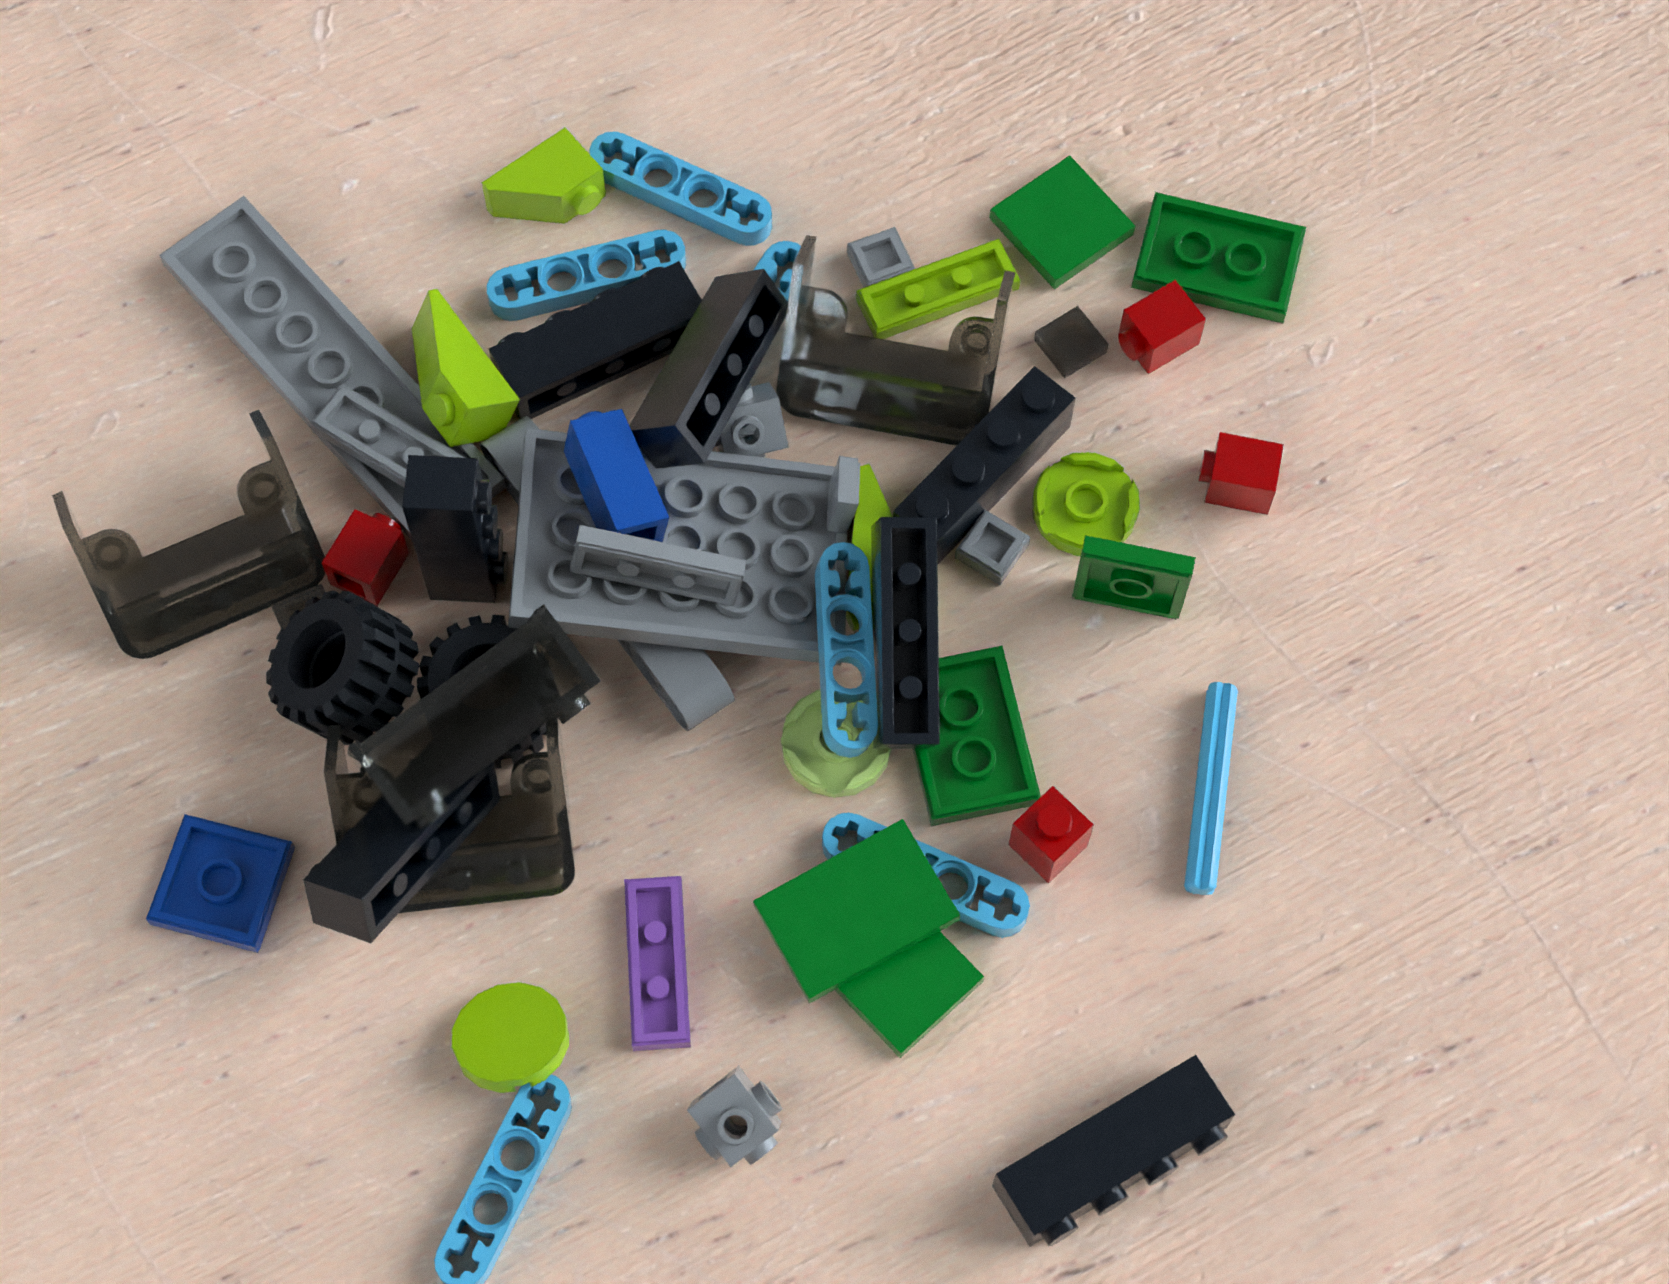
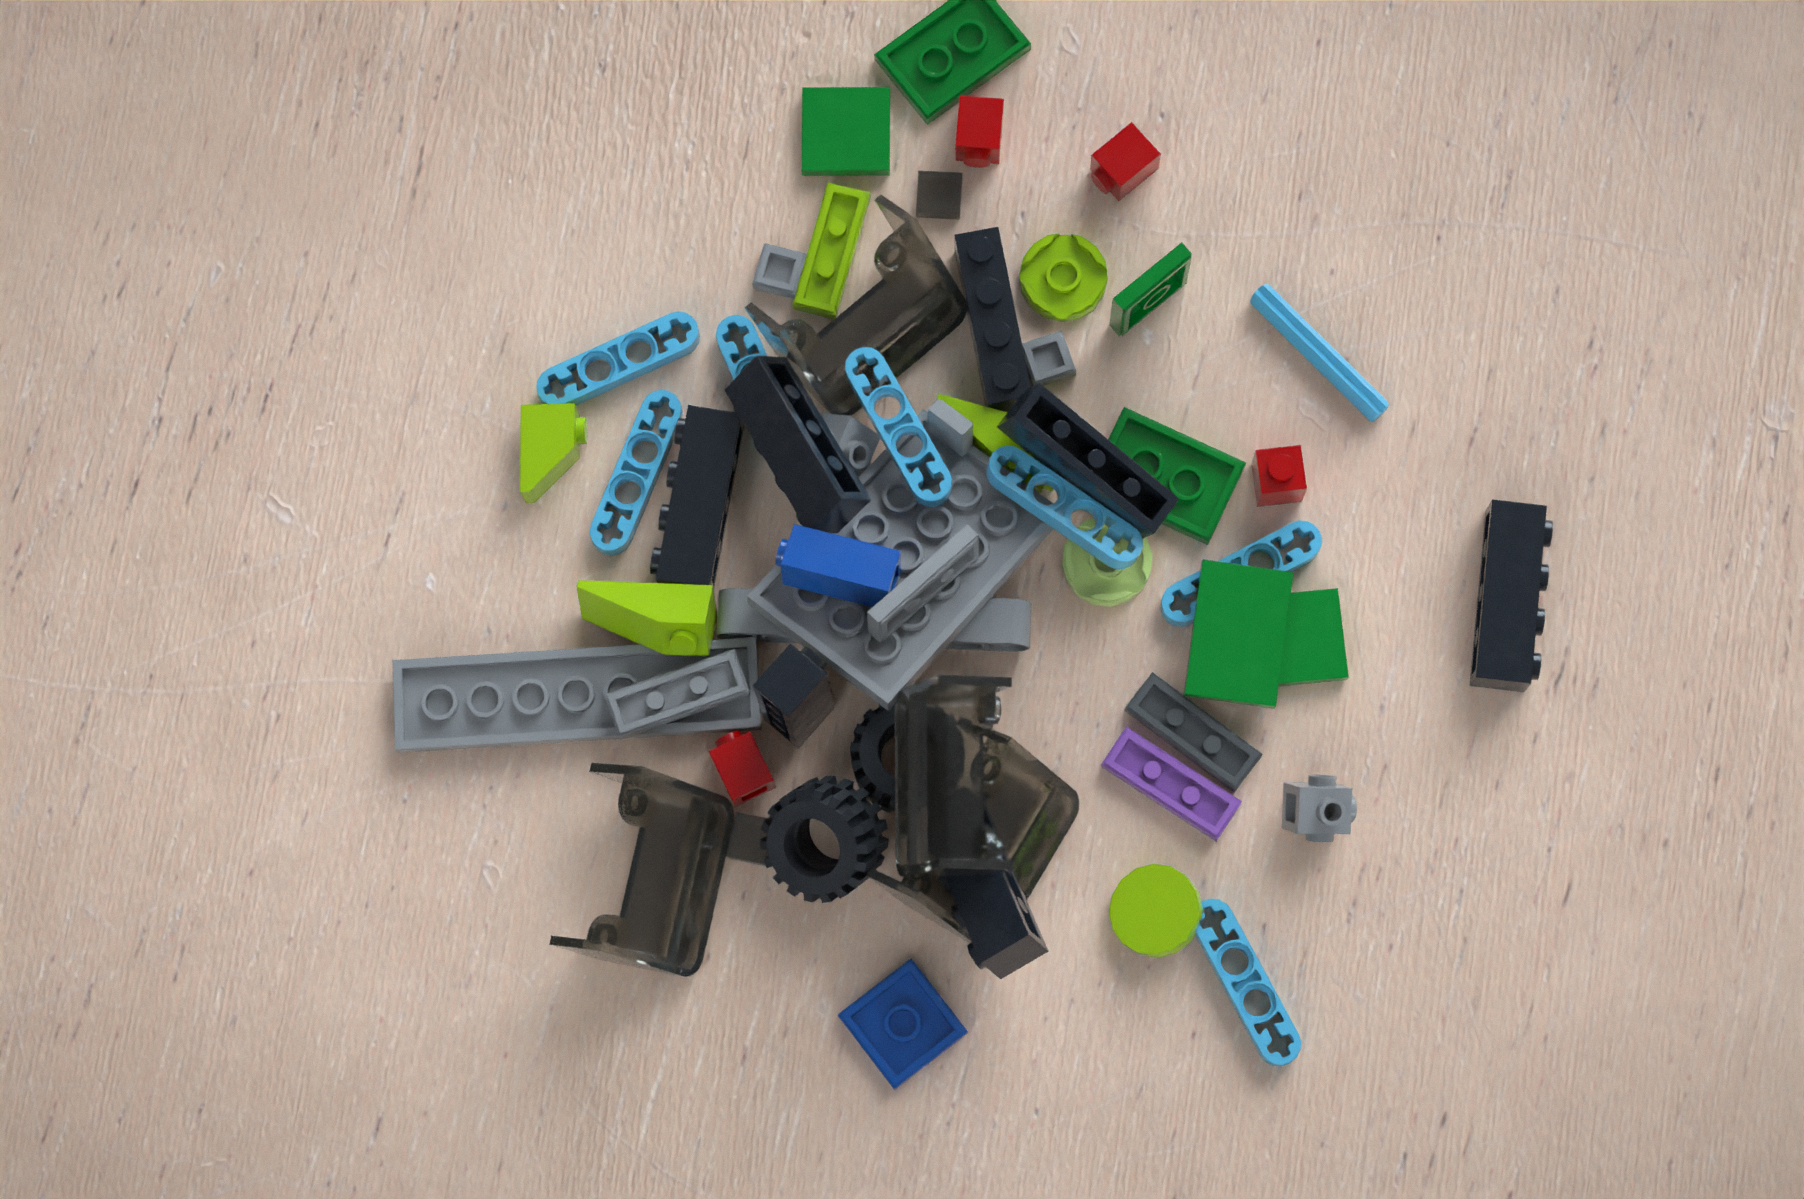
camera: 45 degrees left, 10 degrees up
(726, 947) = (1193, 732): none -> dark grey tile
(799, 445) = (903, 424): none -> medium azure beam

